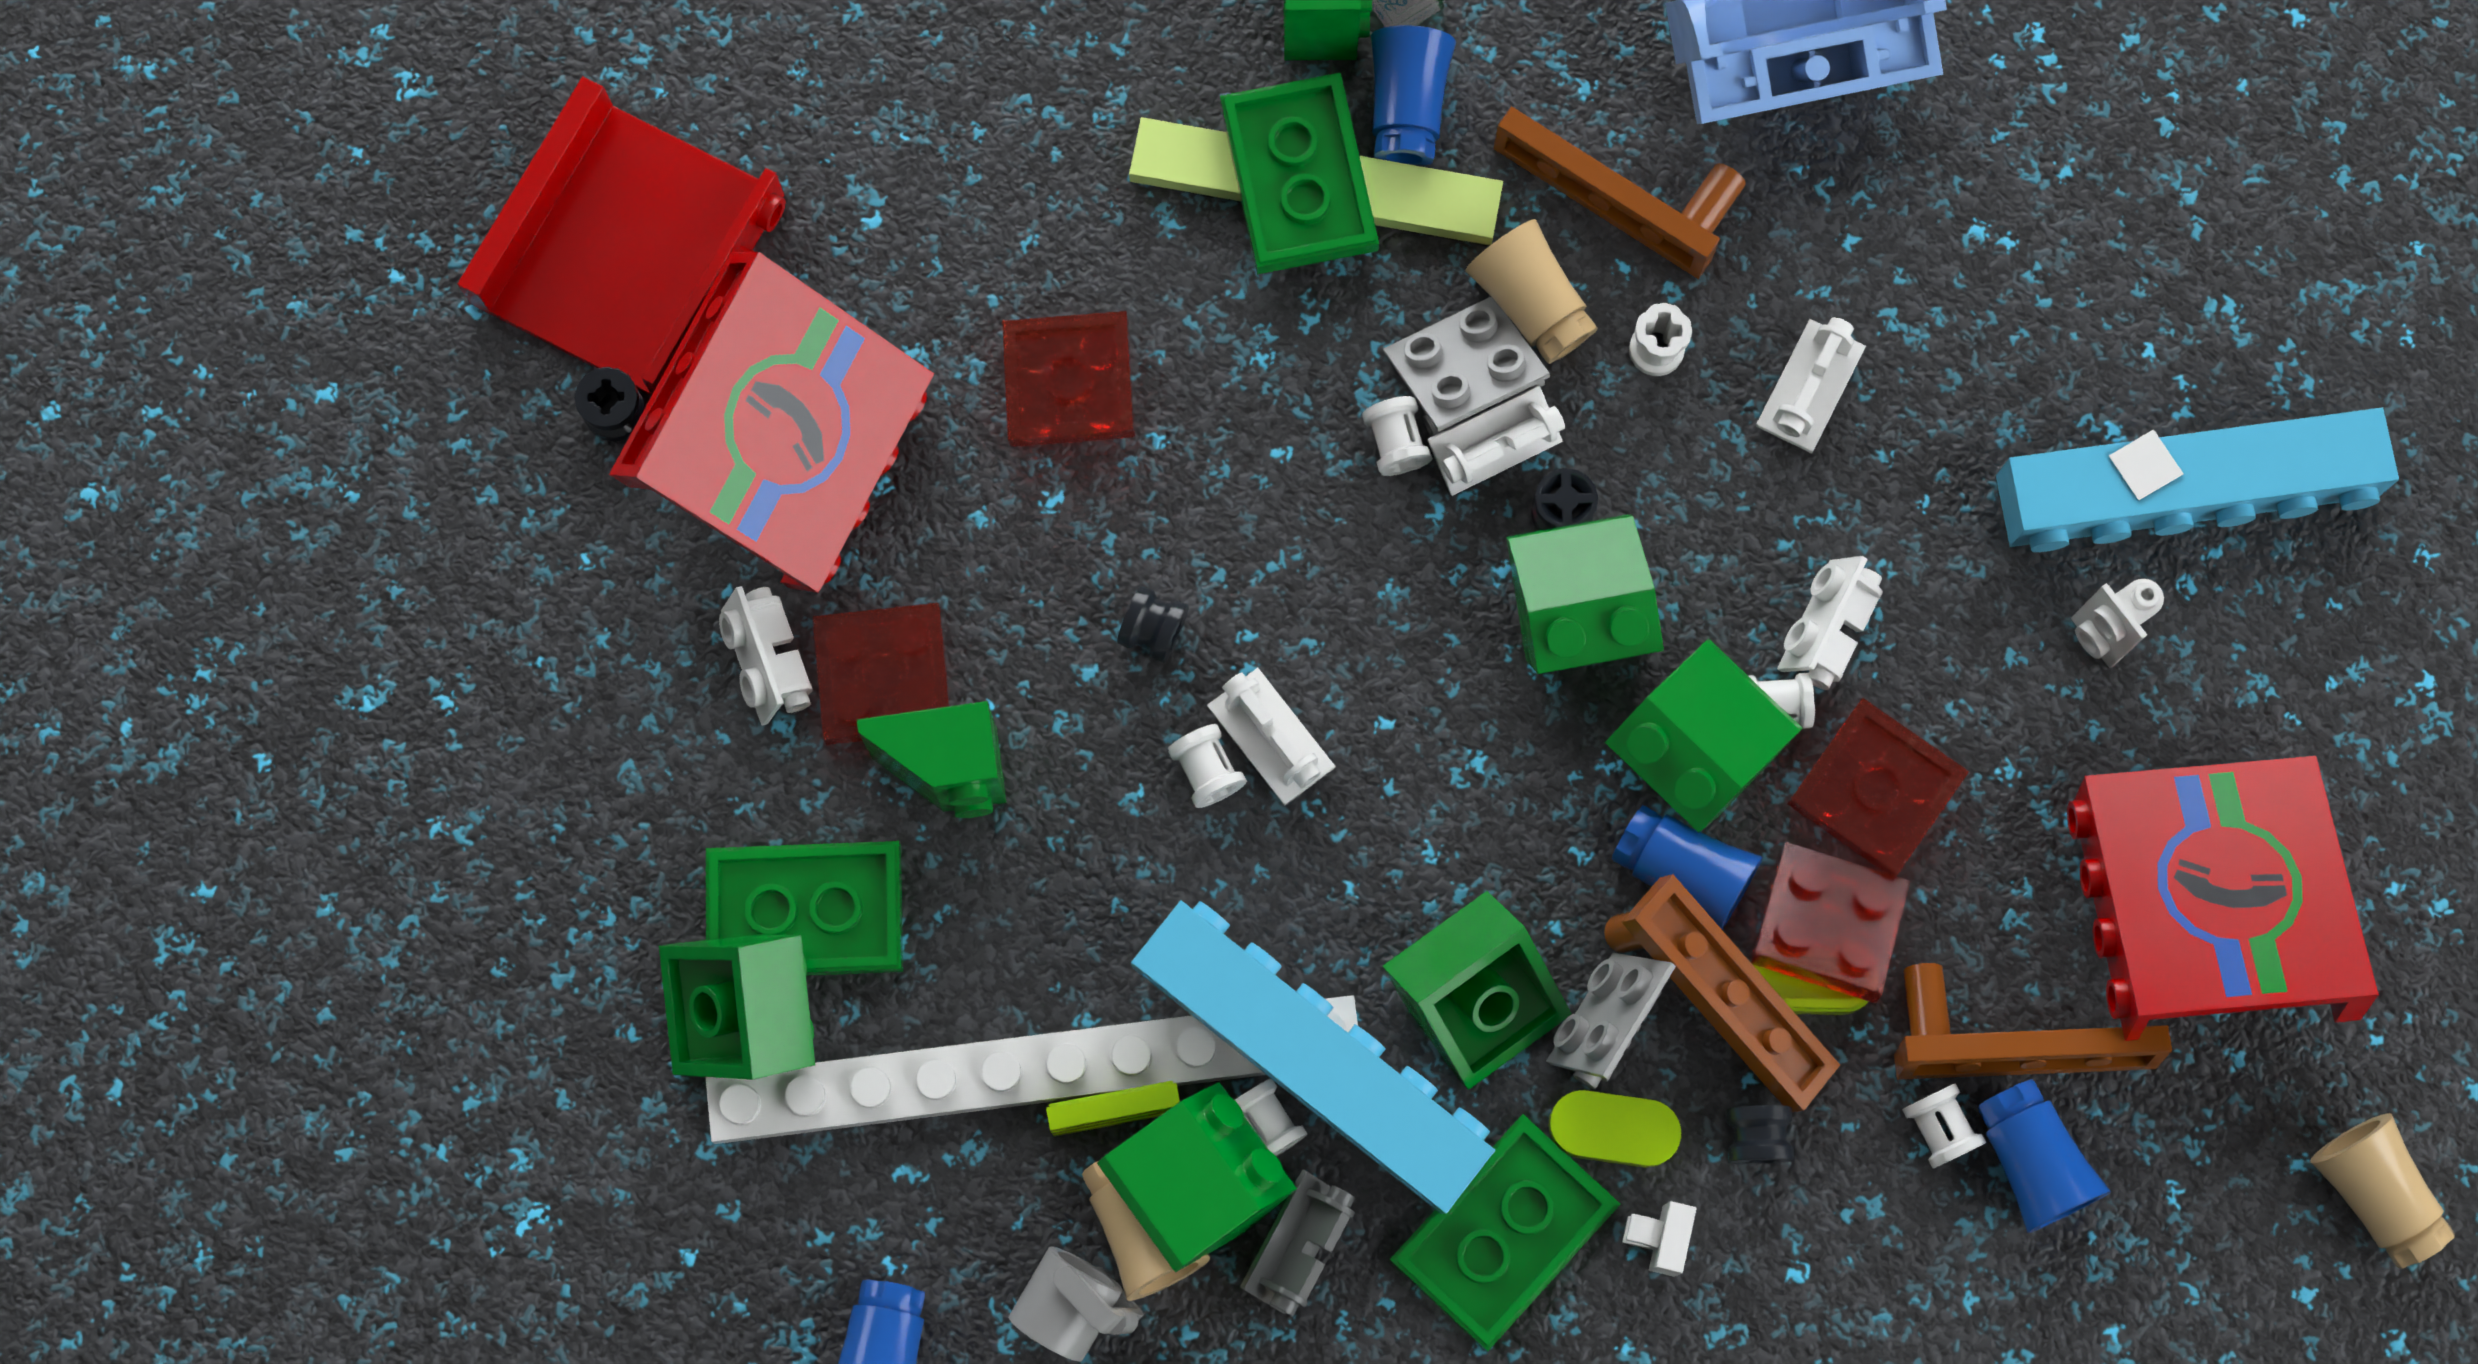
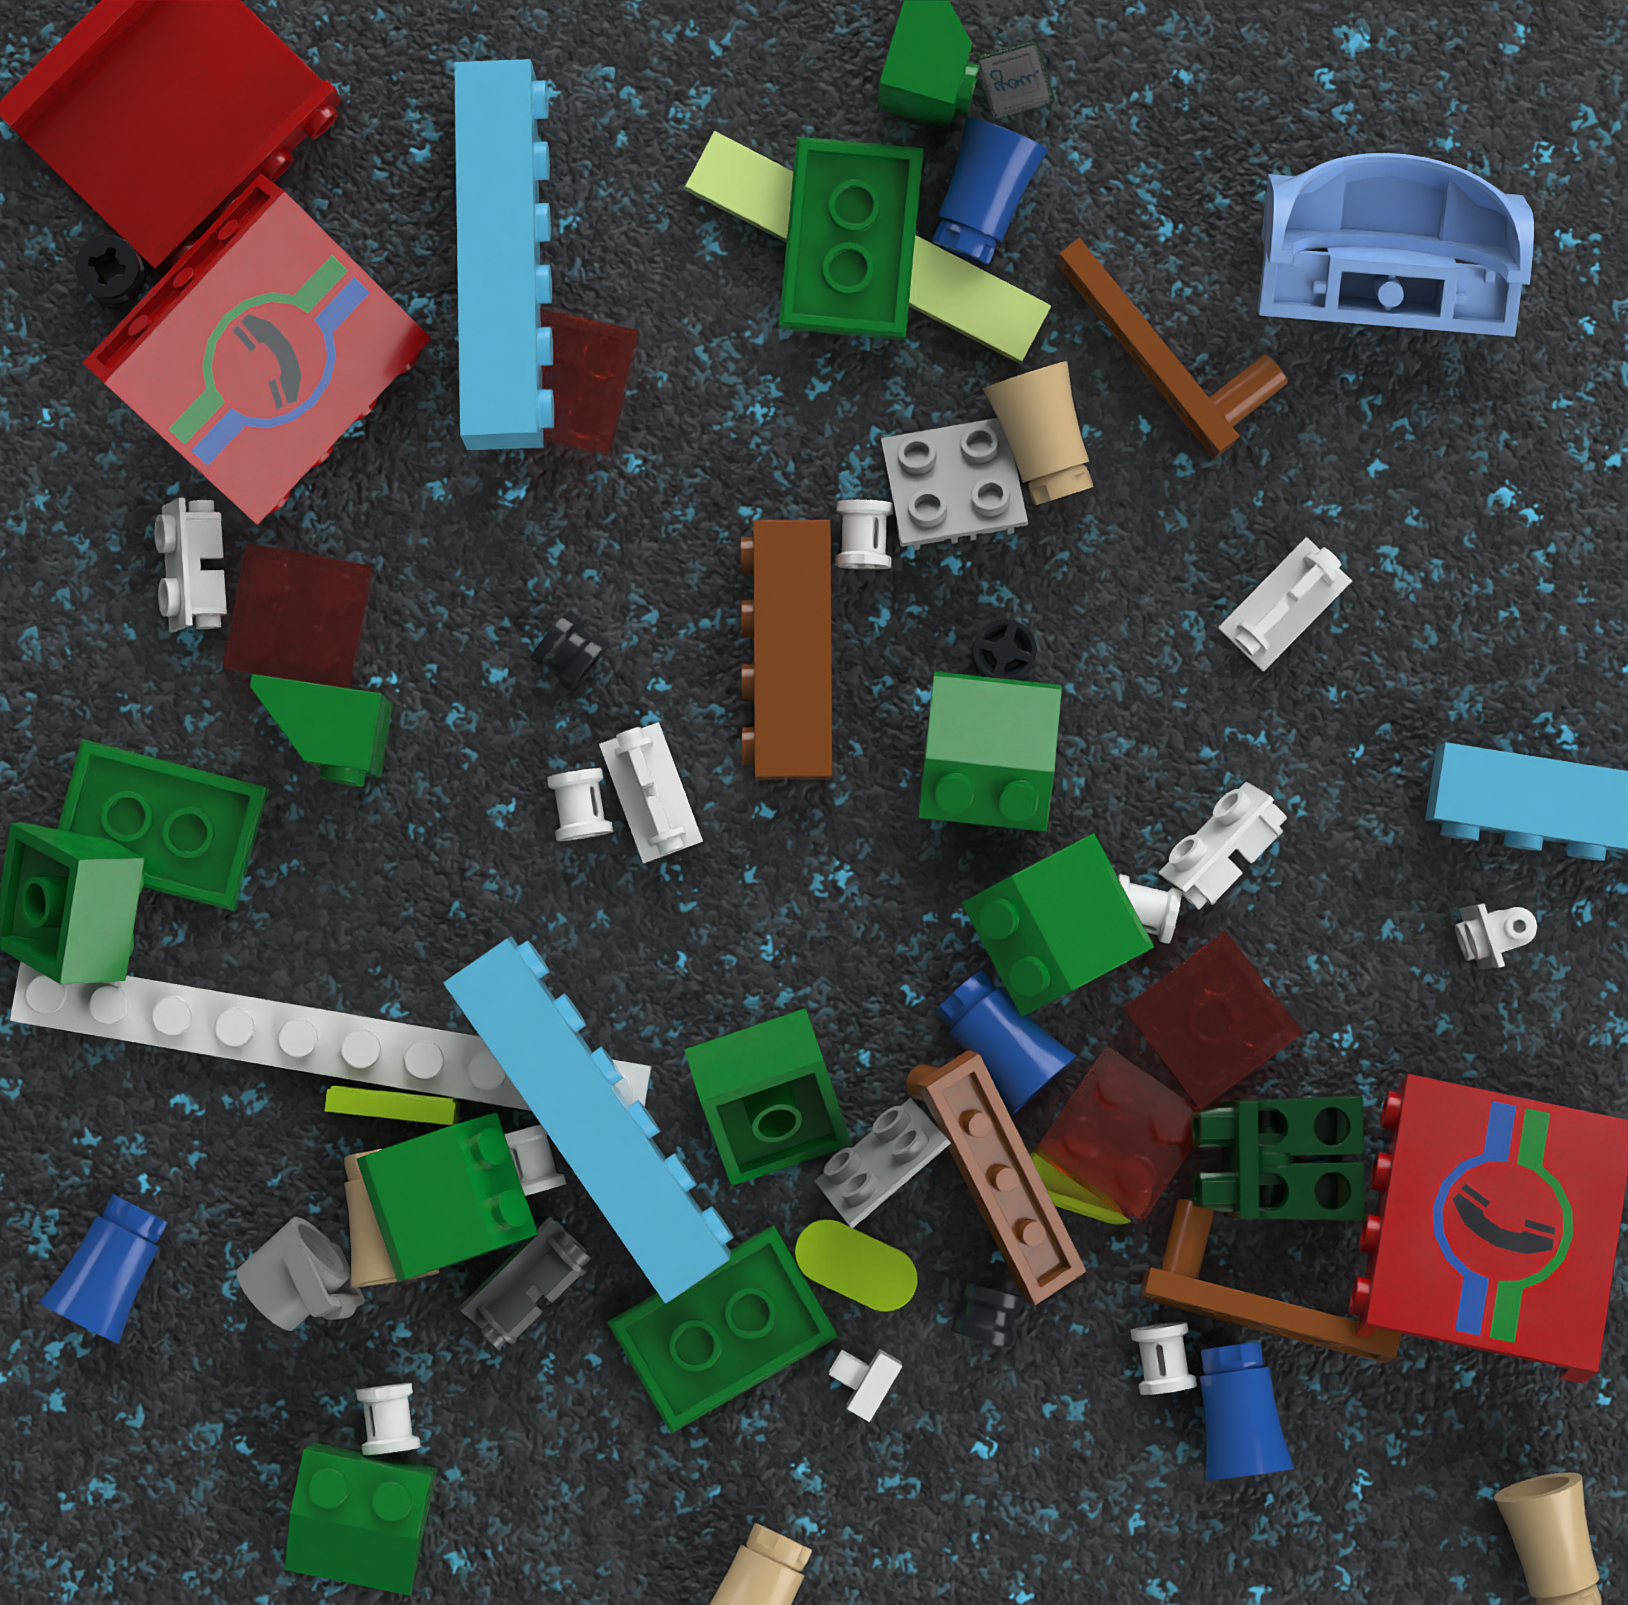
camera: 15 degrees right, 10 degrees up
(976, 280) = (500, 255): none -> medium azure brick
(1363, 561) = (790, 650): none -> dark orange brick
(1496, 439) = (958, 567): white hinge -> none
(1676, 333) = (1169, 510): white bush -> none
(1971, 899) = (1261, 1162): none -> dark green hips
(2146, 464) = (1574, 790): white sticker -> none

